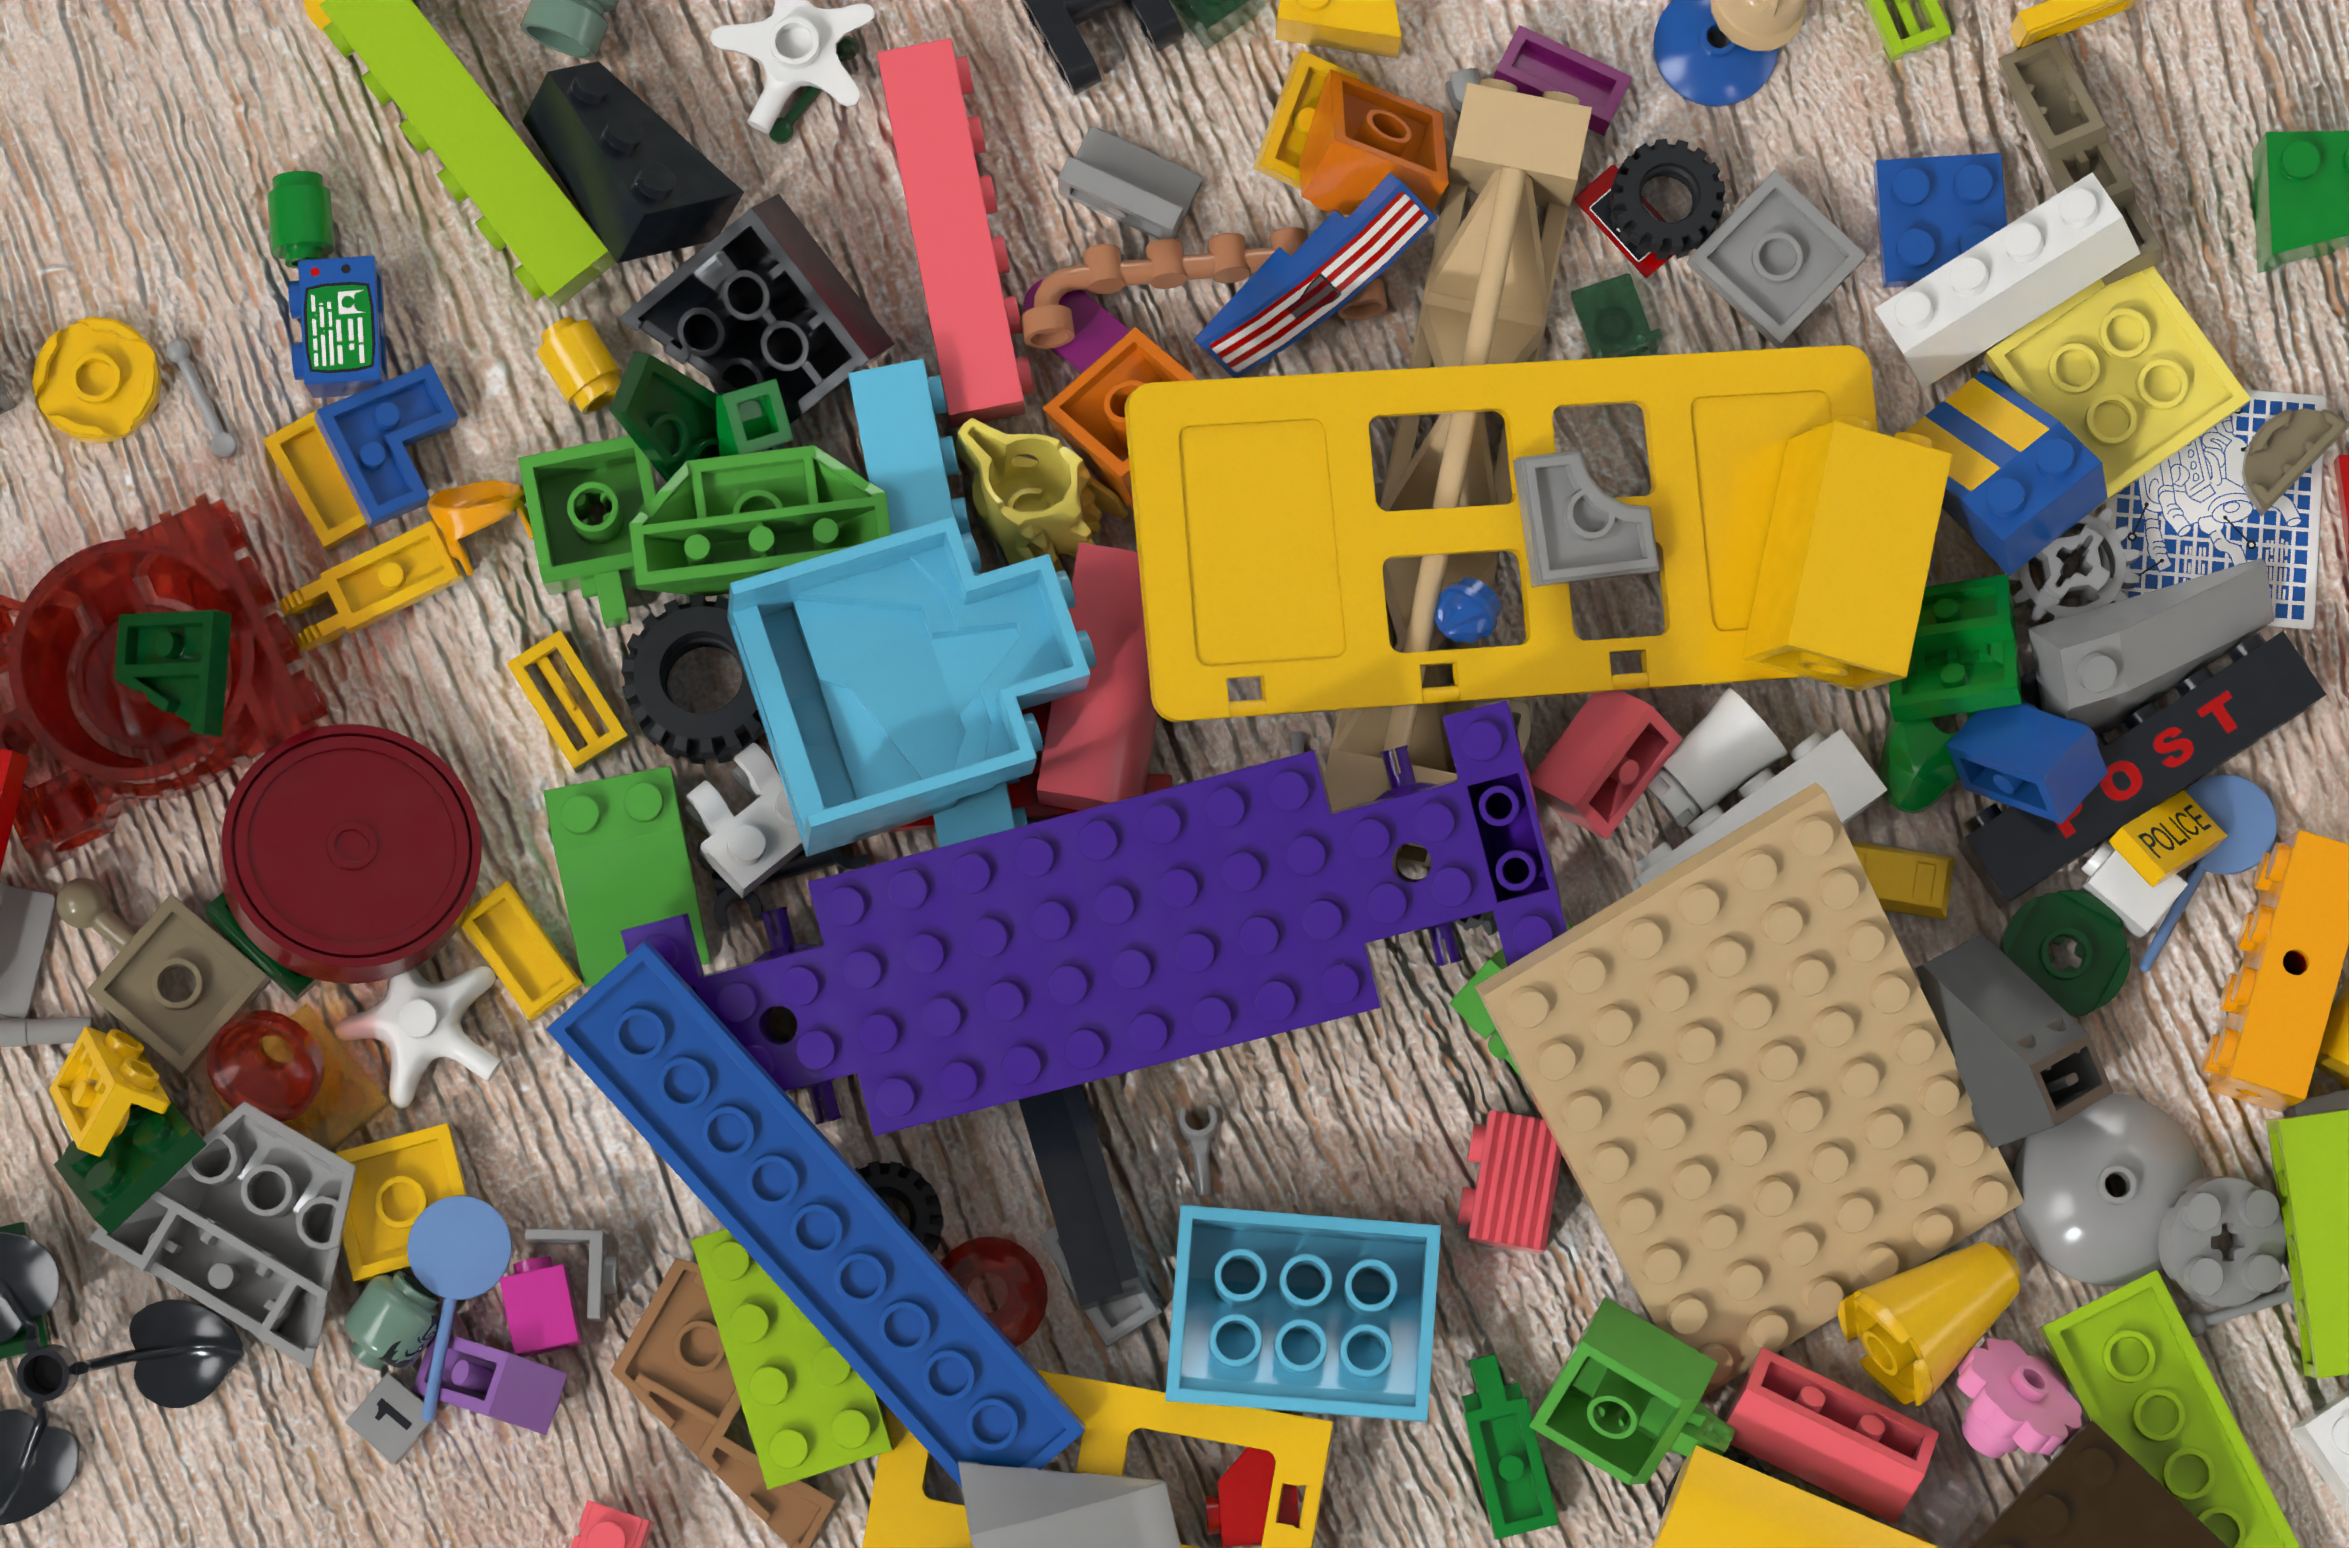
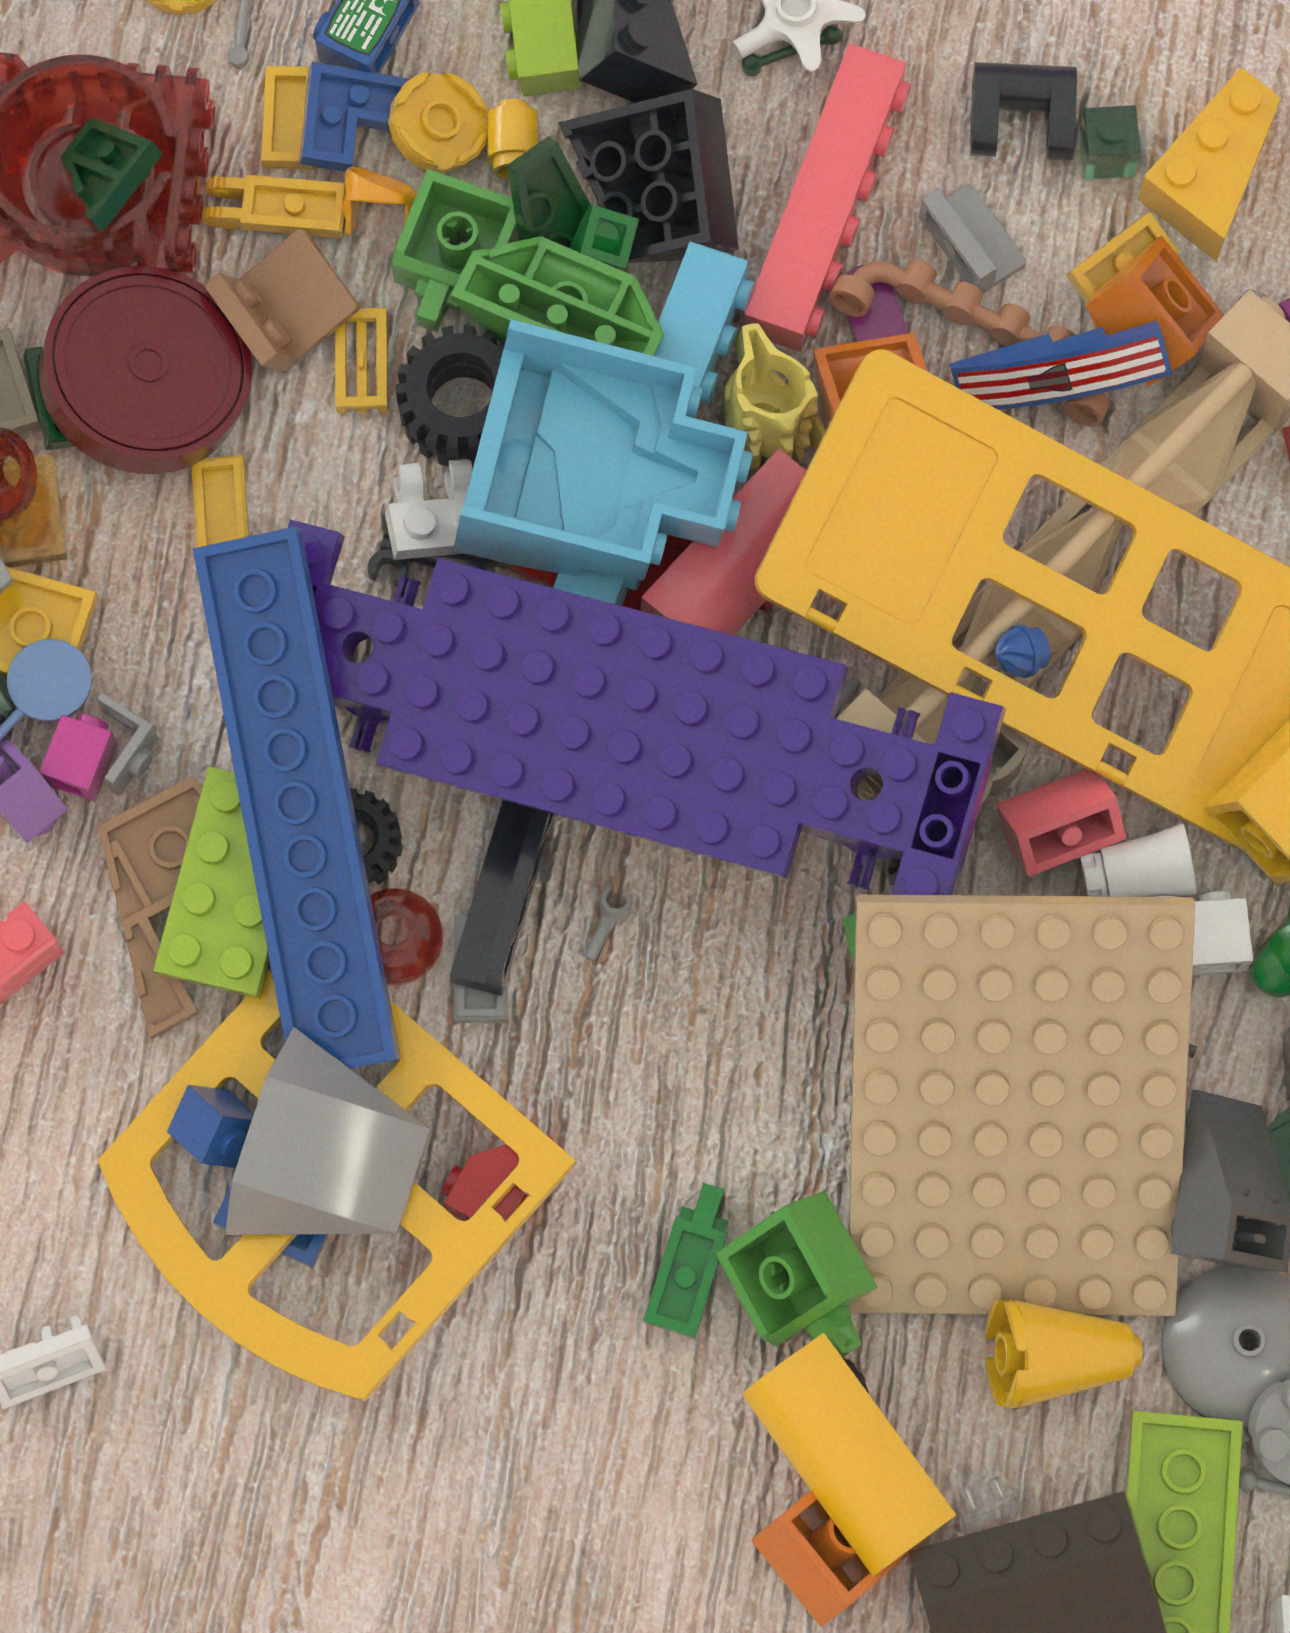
camera: 35 degrees right, 5 degrees down
(423, 1024) = (122, 517): white animal -> none
(451, 689) = (285, 302): none -> medium nougat bracket
(489, 392) = (439, 122): none -> yellow tile
(622, 862) = (335, 479): bright green slope -> none
(1303, 1313) = (604, 1074): medium azure slope -> none
(1512, 1184) = (810, 1079): coral brick -> none
(1575, 527) = (1138, 641): light grey tile -> none
(1614, 319) = (1260, 521): clear green bracket -> none
(1830, 1435) = (928, 1392): coral brick -> none
(1908, 879) = (1225, 1033): yellow tile -> none
(2015, 1401) = (1079, 1449): bright pink plant -> none

